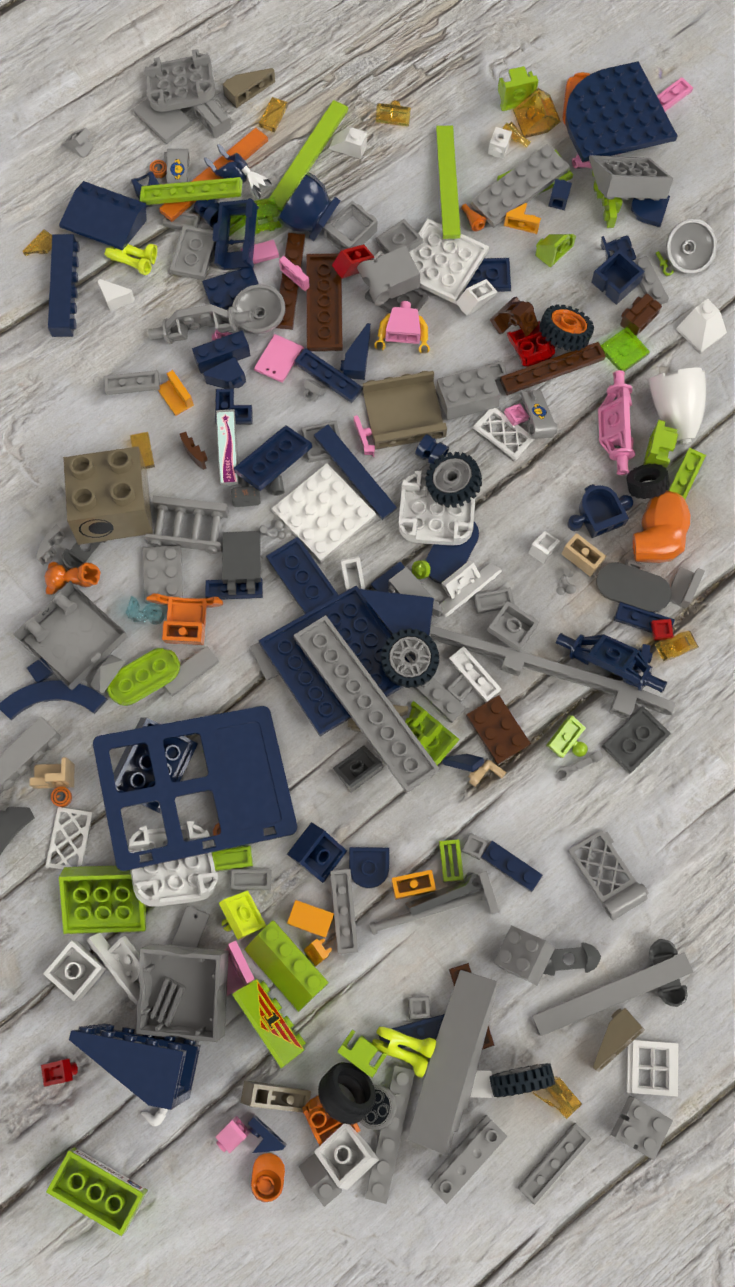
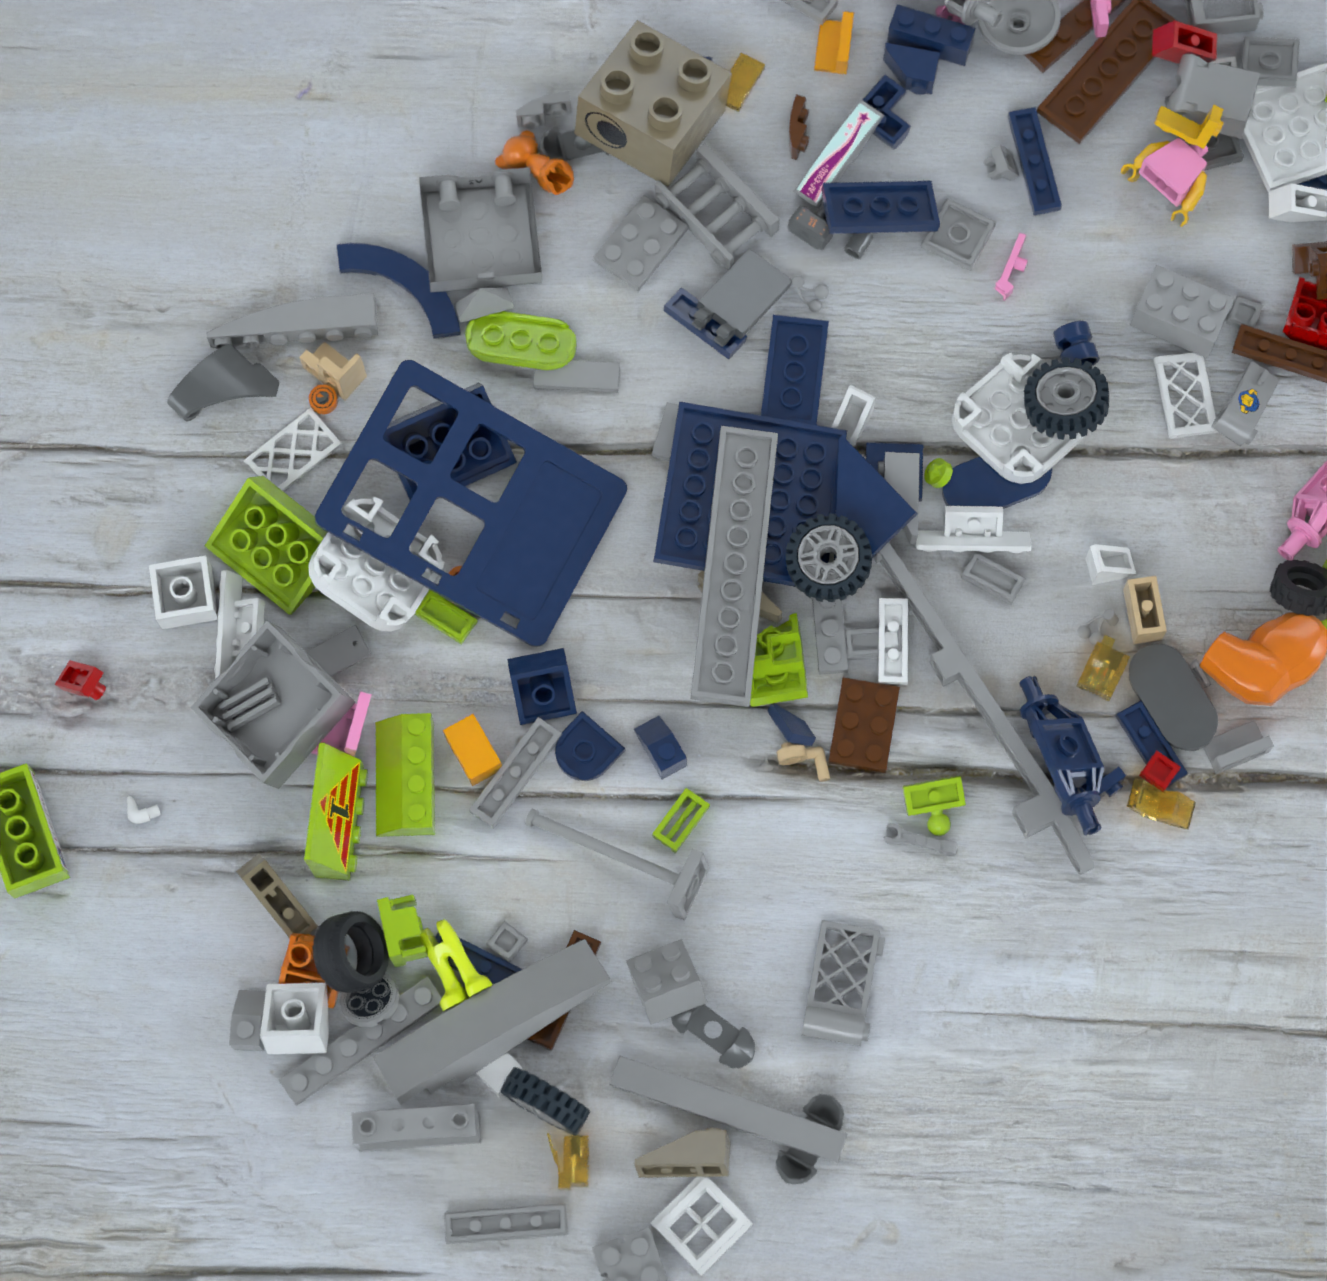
camera: 45 degrees right, 0 degrees up
(39, 670) = (414, 242): dark blue tile -> none
(149, 1066) = (172, 737): dark blue slope -> none
(151, 612) = (589, 274): clear light blue leg -> none
(185, 618) = (620, 312): orange piece -> none
(232, 1135) = (199, 895): bright pink slope -> none
(241, 915) = (403, 680): neon yellow tile -> none
(250, 879) = (446, 656): light grey tile -> none
(267, 1177) = (198, 969): orange cap -> none
(270, 1140) = (232, 935): dark blue slope -> none
(278, 358) = (994, 94): bright pink container -> none
(317, 952) = (448, 789): light orange tile -> none
(323, 512) = (886, 318): white plate -> none
(355, 472) = (963, 299): dark blue tile -> none
(356, 356) = (1090, 163): dark blue slope -> none
(358, 768) = (666, 636): dark grey slope -> none
(402, 297) = (1189, 130): none -> yellow bracket
(403, 409) = (1088, 272): dark tan panel -> none
(406, 830) = (661, 747): none -> dark blue slope
(413, 884) = (614, 806): light orange brick -> none
(444, 895) = (669, 856): dark grey tile -> none
(474, 846) = (721, 827): light grey tile -> none
(511, 866) = (742, 883): dark blue plate -> none
(513, 626) = (984, 622): light grey plate -> none
(516, 414) = (1220, 384): bright pink tile -> none
(589, 601) = (1103, 669): none -> clear yellow piece
(601, 511) = (1217, 578): dark blue piece -> none
(636, 740) = (1014, 868): dark grey tile -> none

